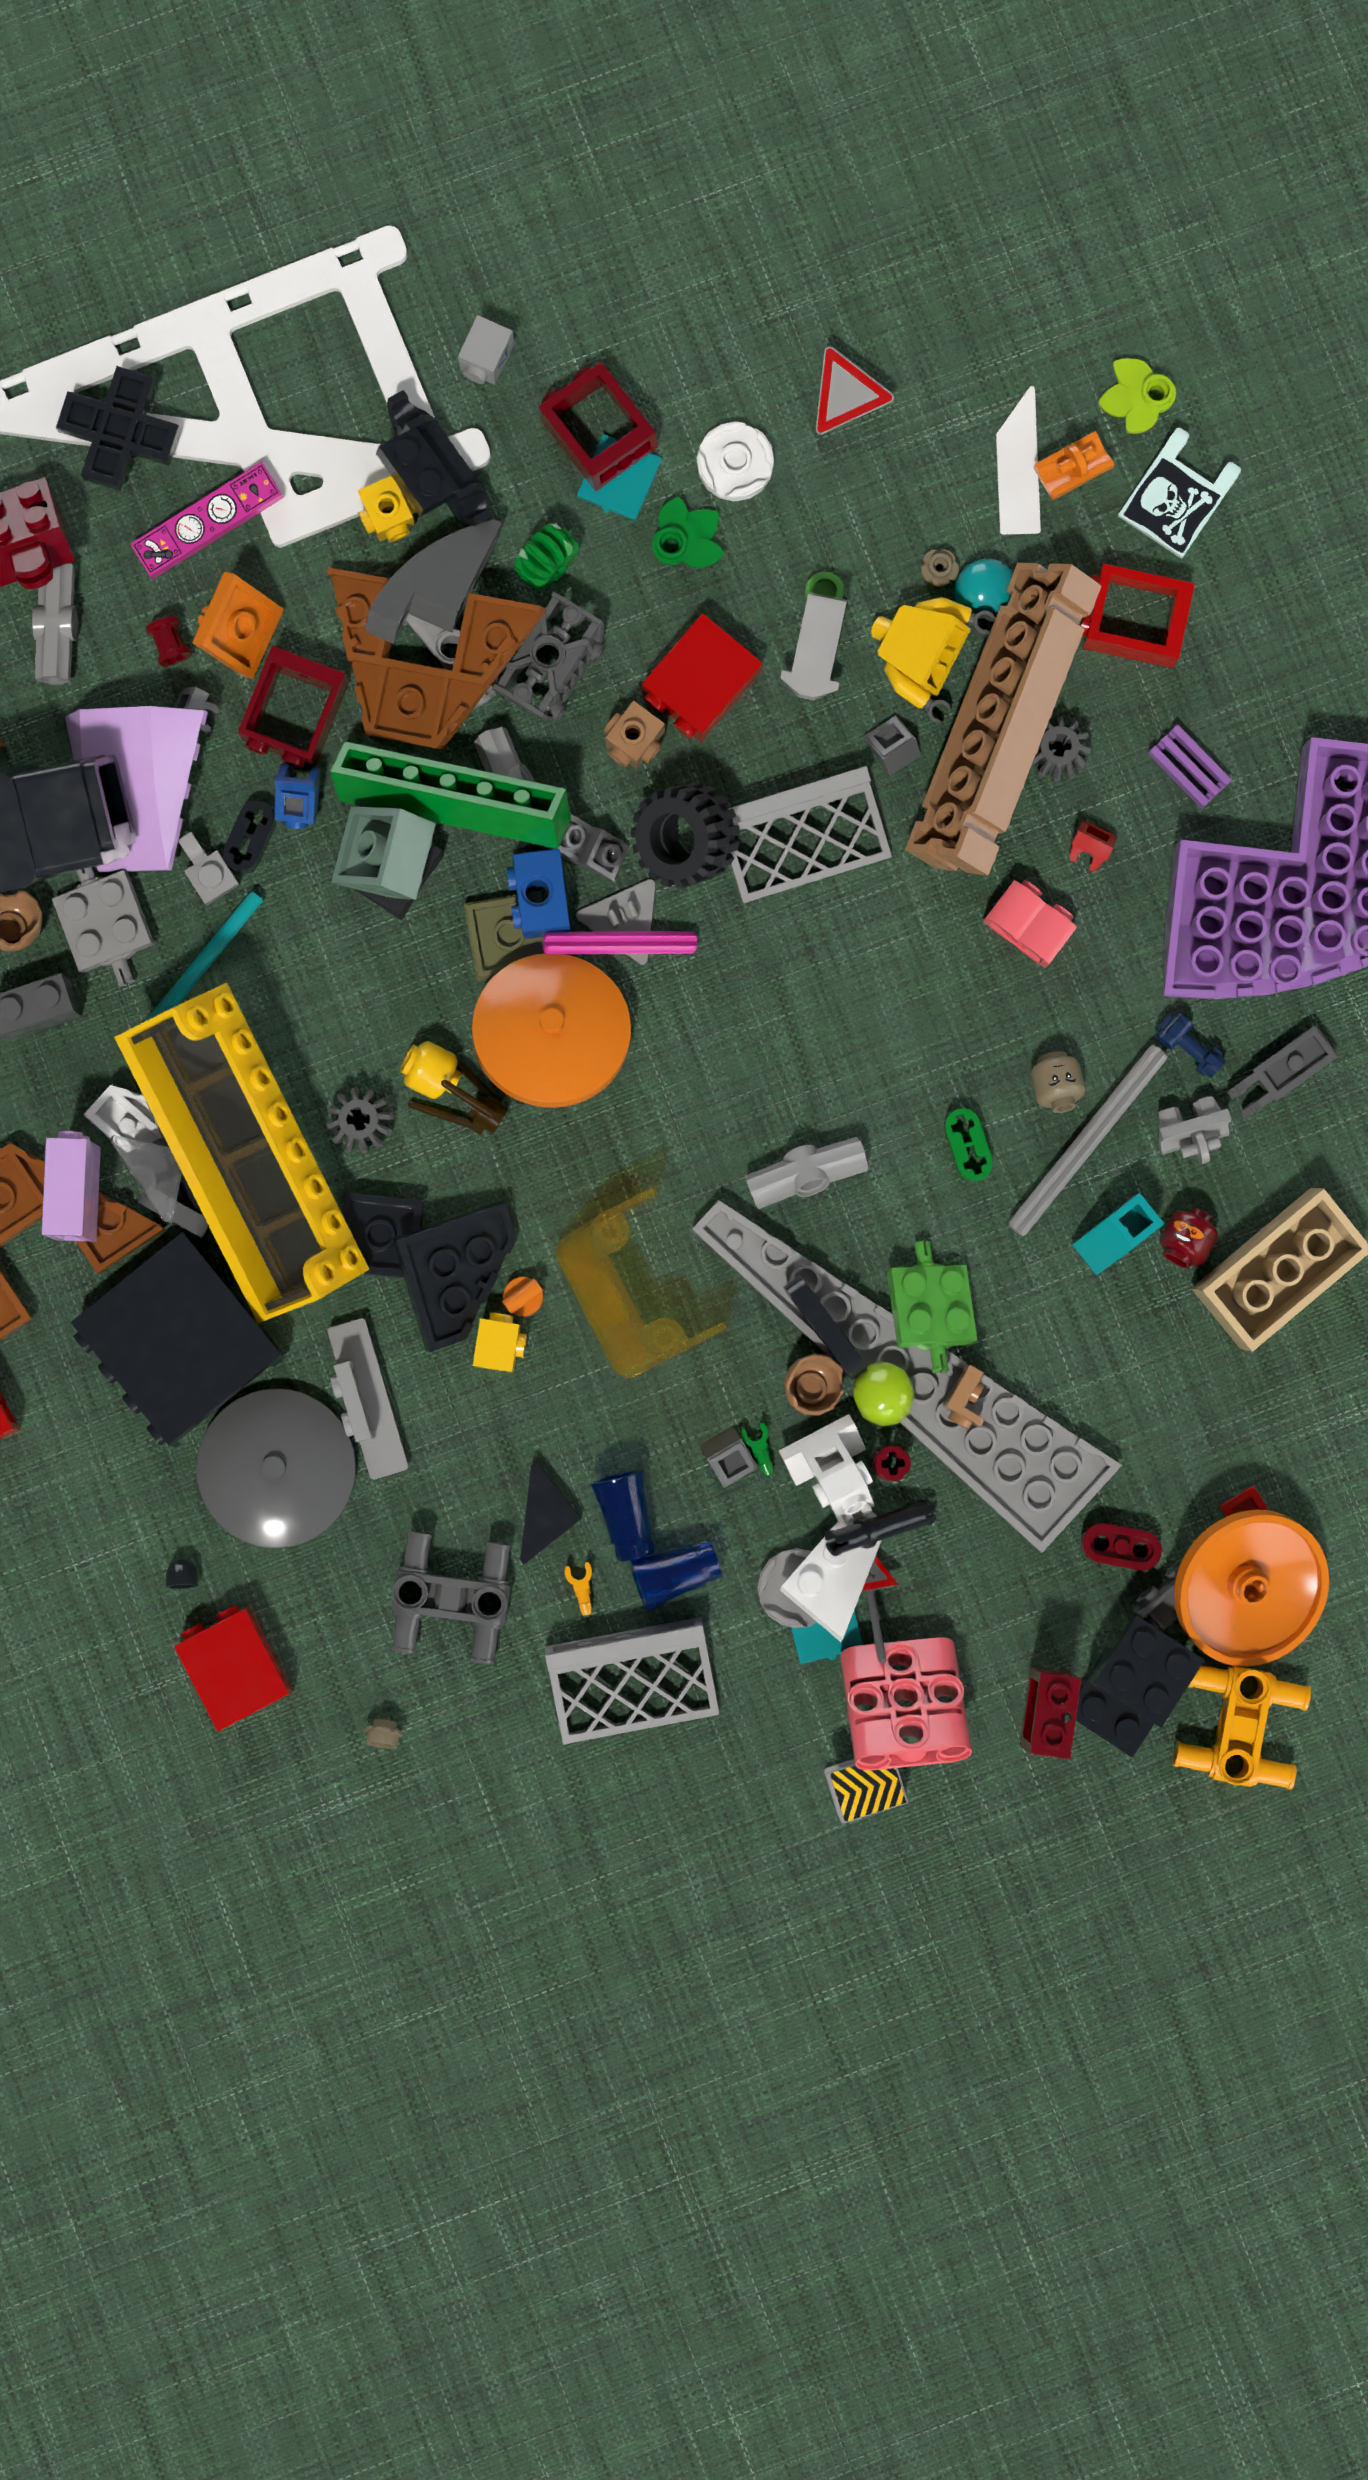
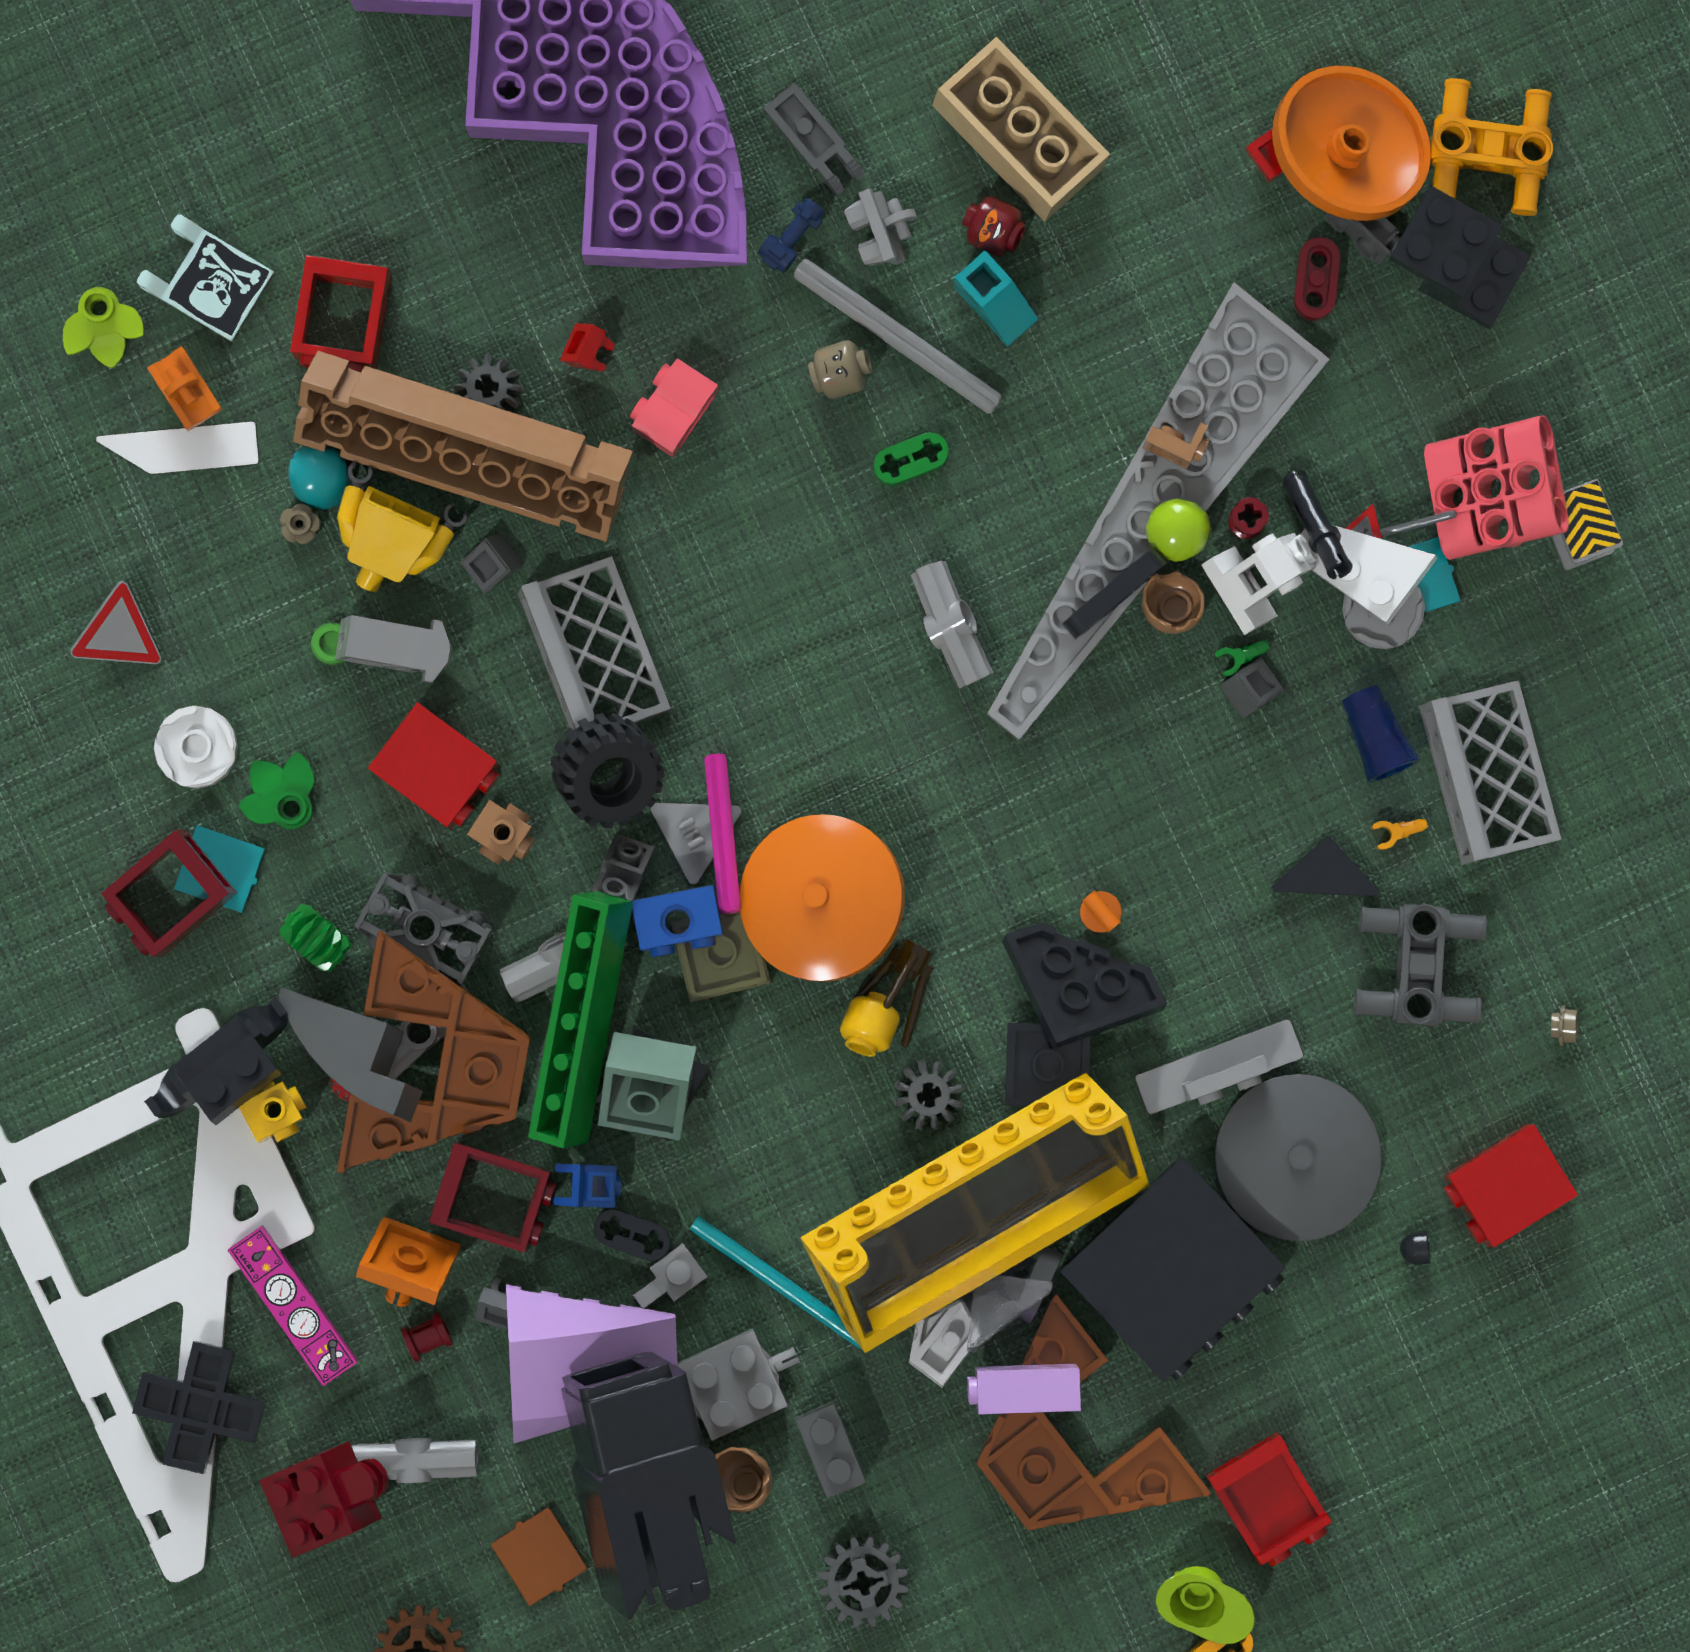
camera: 90 degrees left, 0 degrees up
(485, 351) = (93, 1019): light grey brick -> none
(499, 1343) = (1152, 932): yellow brick -> none
(605, 1301) = (1066, 844): clear yellow windscreen -> none
(625, 1513) = (1319, 789): clear blue plant -> none
(931, 1306) = (1083, 486): bright green plate -> none
(1047, 1700) = (1481, 343): dark red window -> none
(1200, 756) = (480, 246): medium lavender tile -> none

